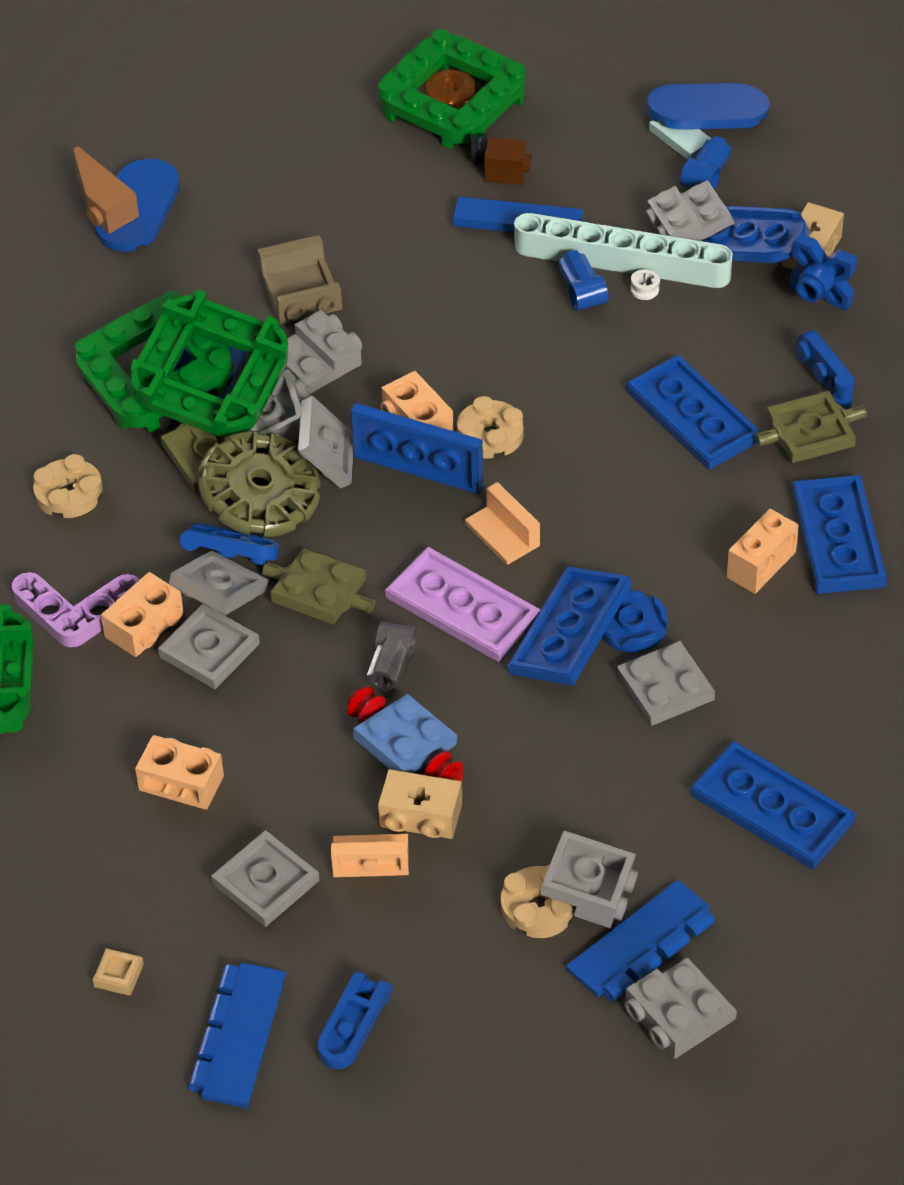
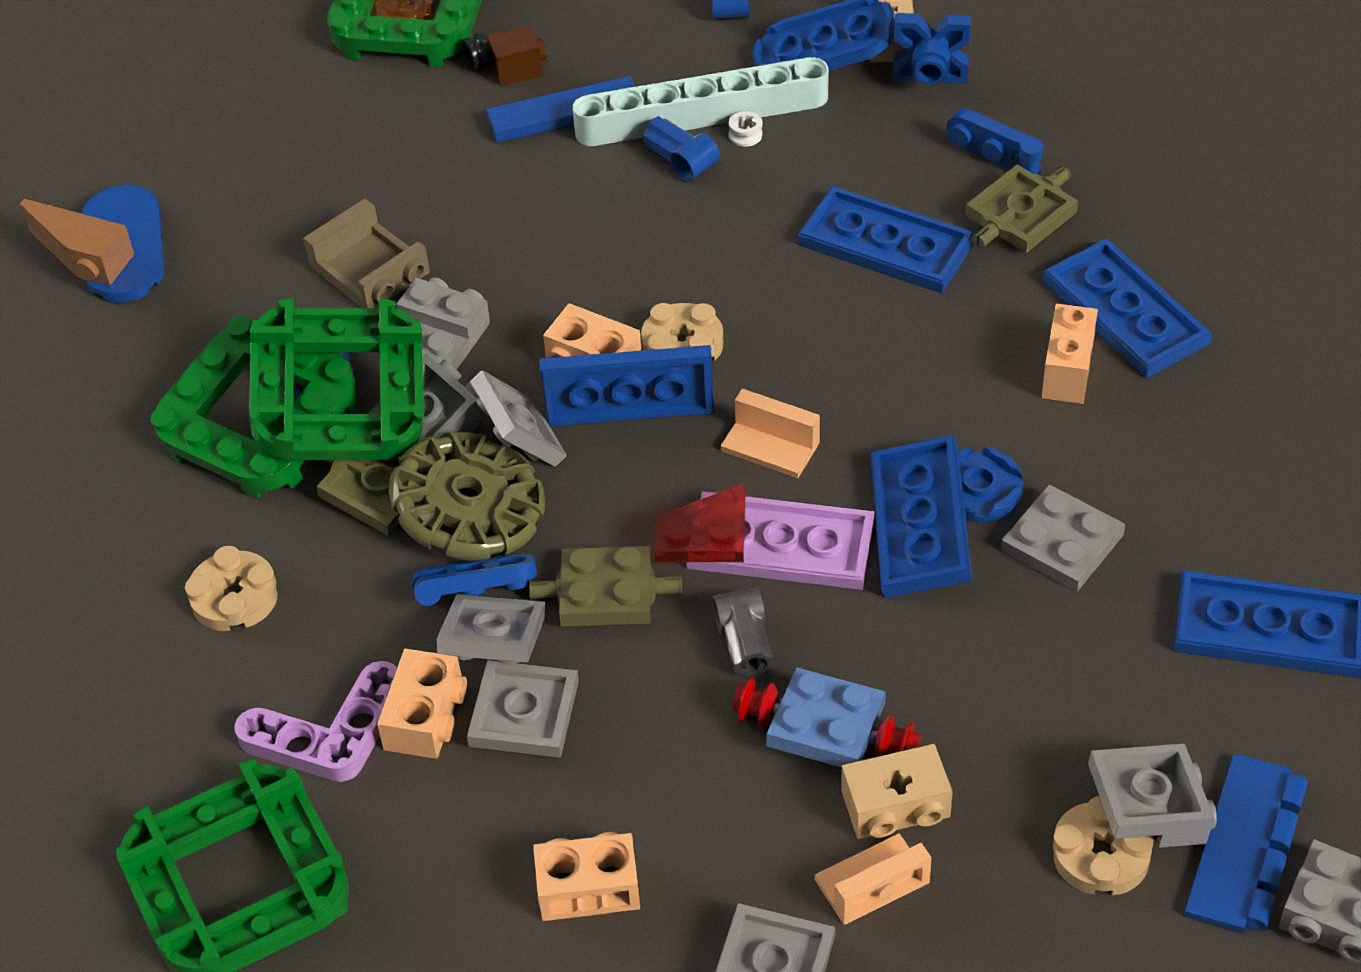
camera: 25 degrees left, 0 degrees up
(408, 574) = (704, 530): none -> clear red wing
(690, 214) = (749, 39): light grey plate -> none

